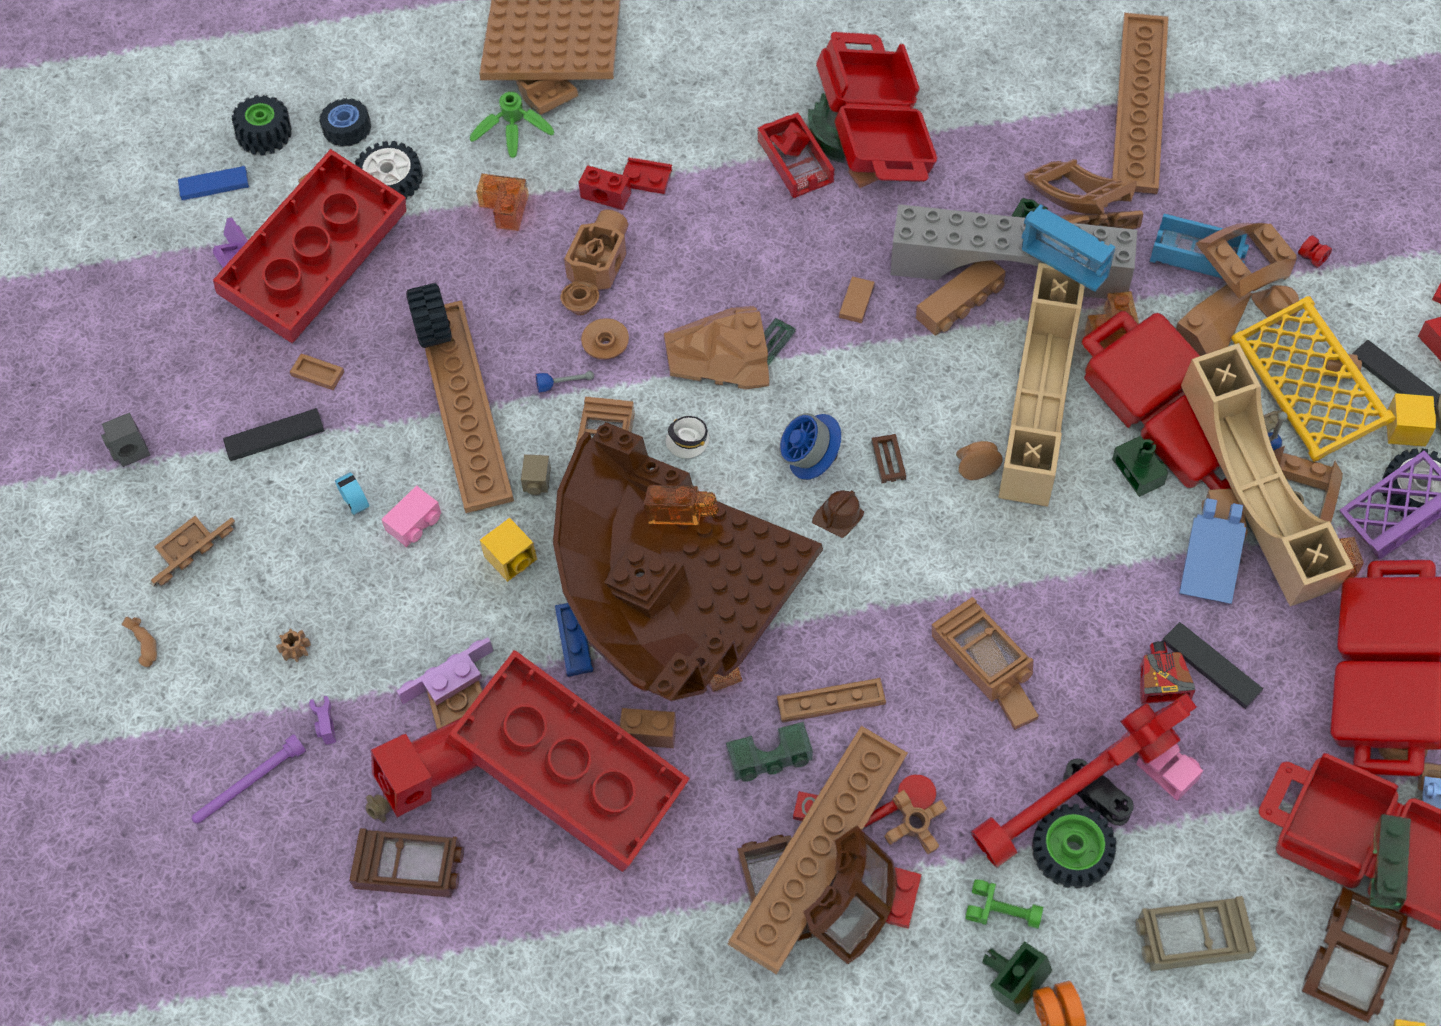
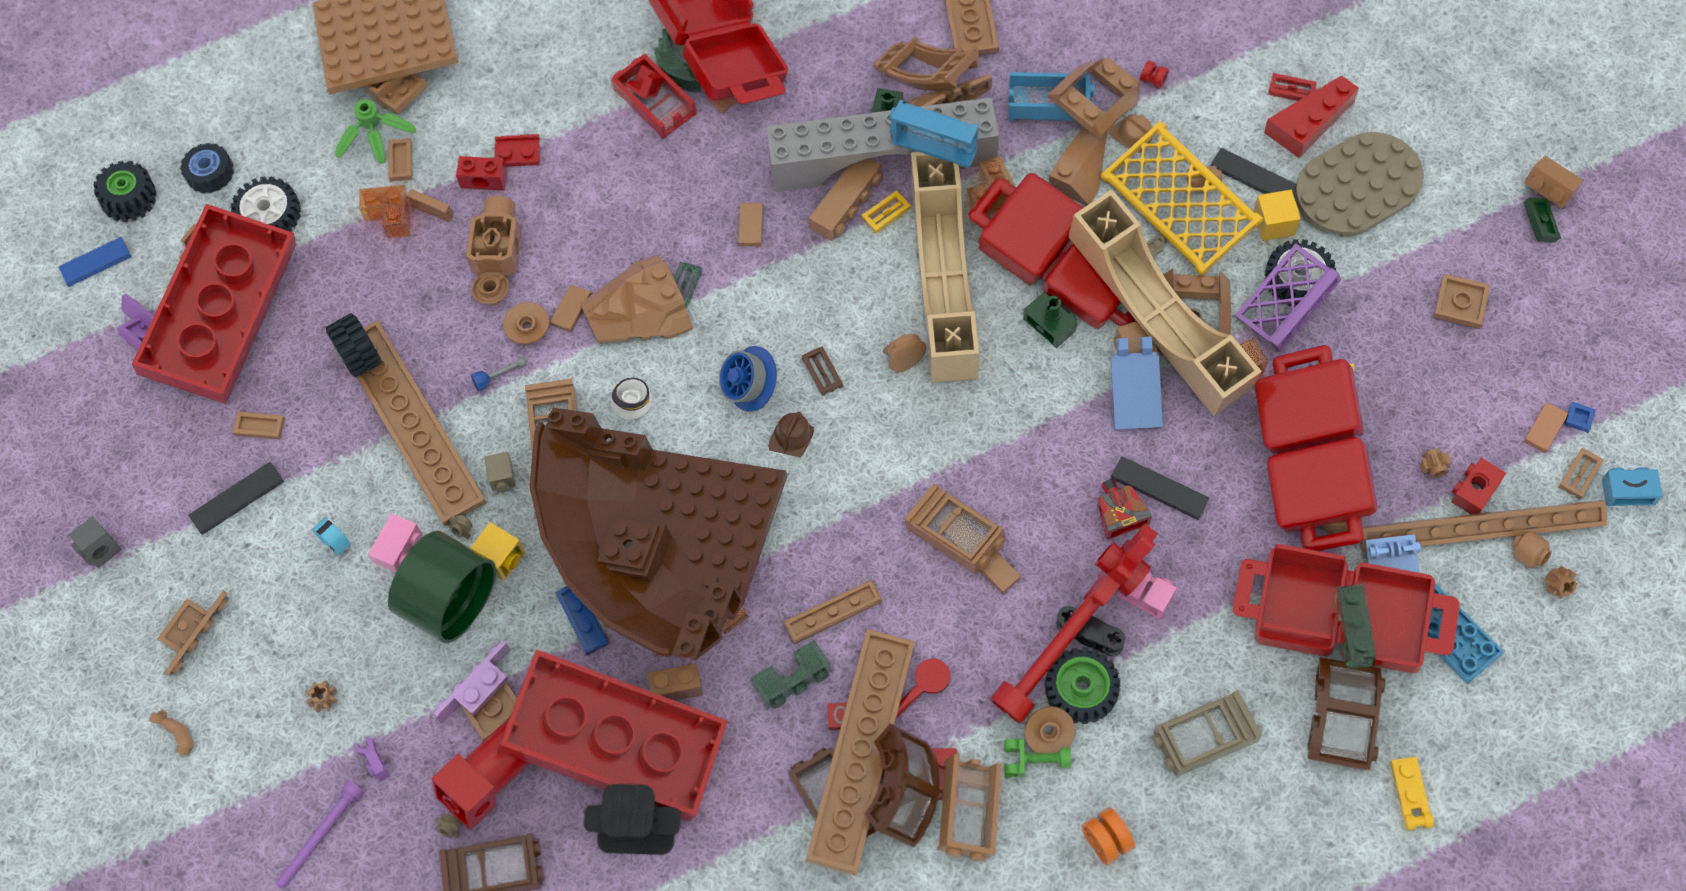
camera: 15 degrees left, 5 degrees up
(442, 567) = (441, 586): none -> dark green wheel
(481, 516) = (460, 526): none -> dark tan plate
(530, 157) = (400, 159): none -> medium nougat tile
(545, 206) = (430, 205): none -> medium nougat tile
(560, 853) = (631, 821): none -> black piece
(652, 336) = (569, 308): none -> medium nougat tile
(678, 504) = (643, 468): clear orange hinge -> none
(904, 804) = (948, 712): medium nougat pin -> none
(917, 941) = (969, 809): none -> door
(982, 328) = (872, 223): none -> yellow tile
(1017, 976) = (1064, 815): dark green brick -> none
(1036, 892) = (1060, 735): none -> medium nougat dish
(1275, 439) = (1161, 262): light grey hinge -> none

